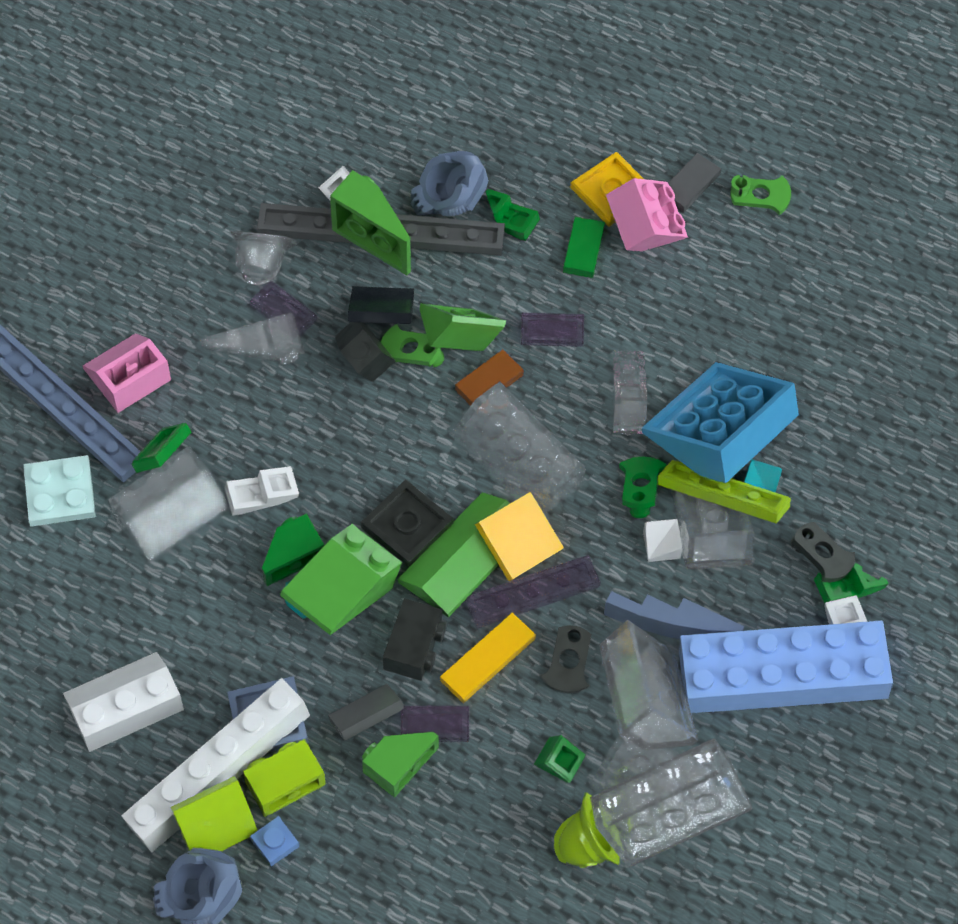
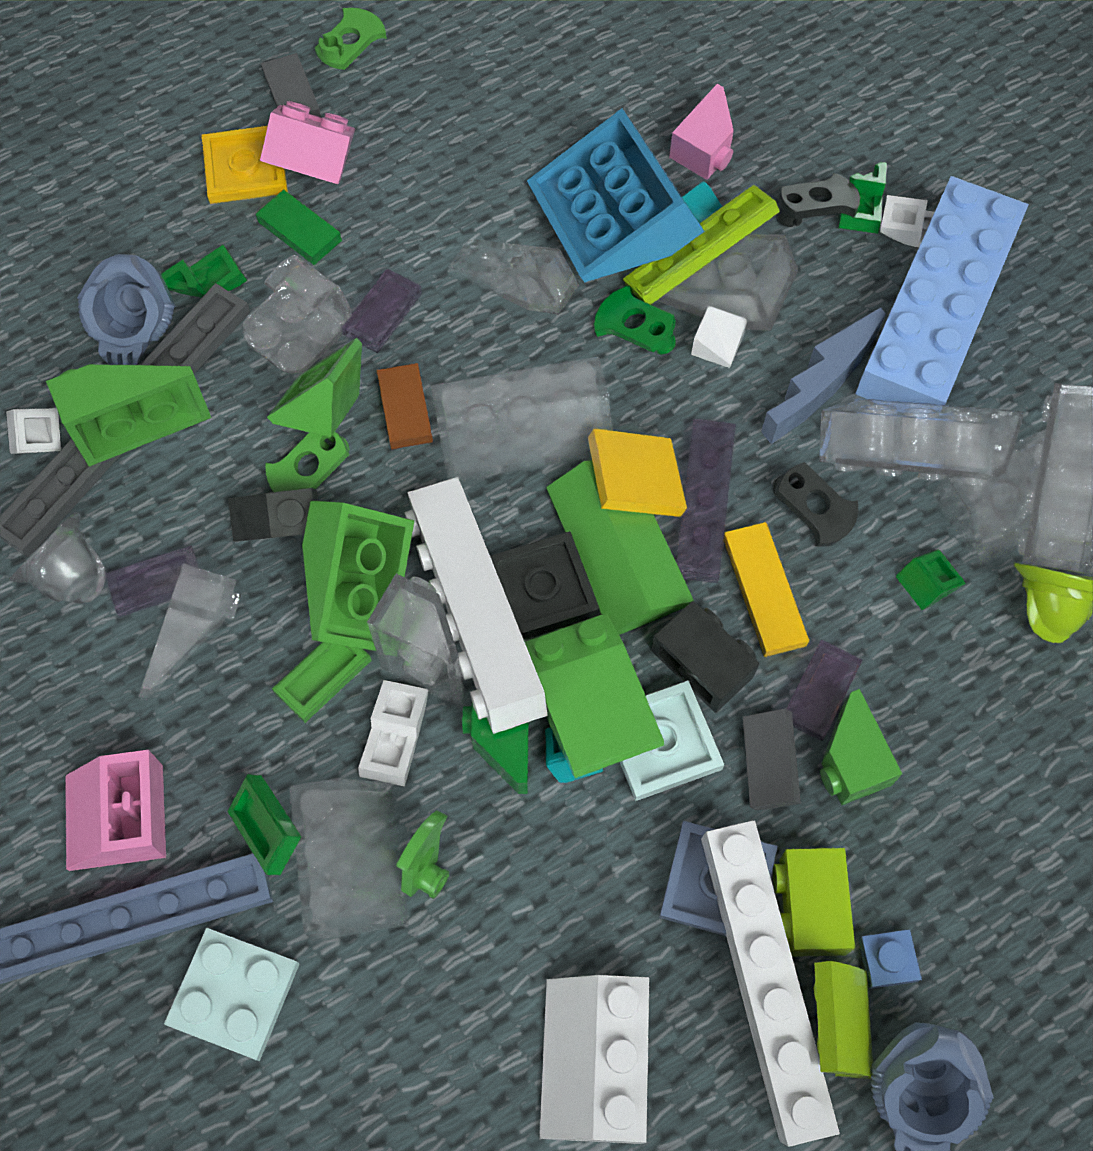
camera: 60 degrees left, 5 degrees up
(184, 550) = (420, 858): none -> bright green piece
(276, 432) = (320, 677): none -> bright green tile
(317, 462) = (416, 639): none -> clear slope
(343, 410) = (348, 567): none -> bright green slope
(346, 650) = (687, 748): none -> light aqua plate
(364, 483) = (477, 607): none -> white brick
(381, 305) = (234, 463): black tile -> none
(507, 283) = (298, 318): none -> clear piece
(829, 453) = (705, 136): none -> bright pink slope

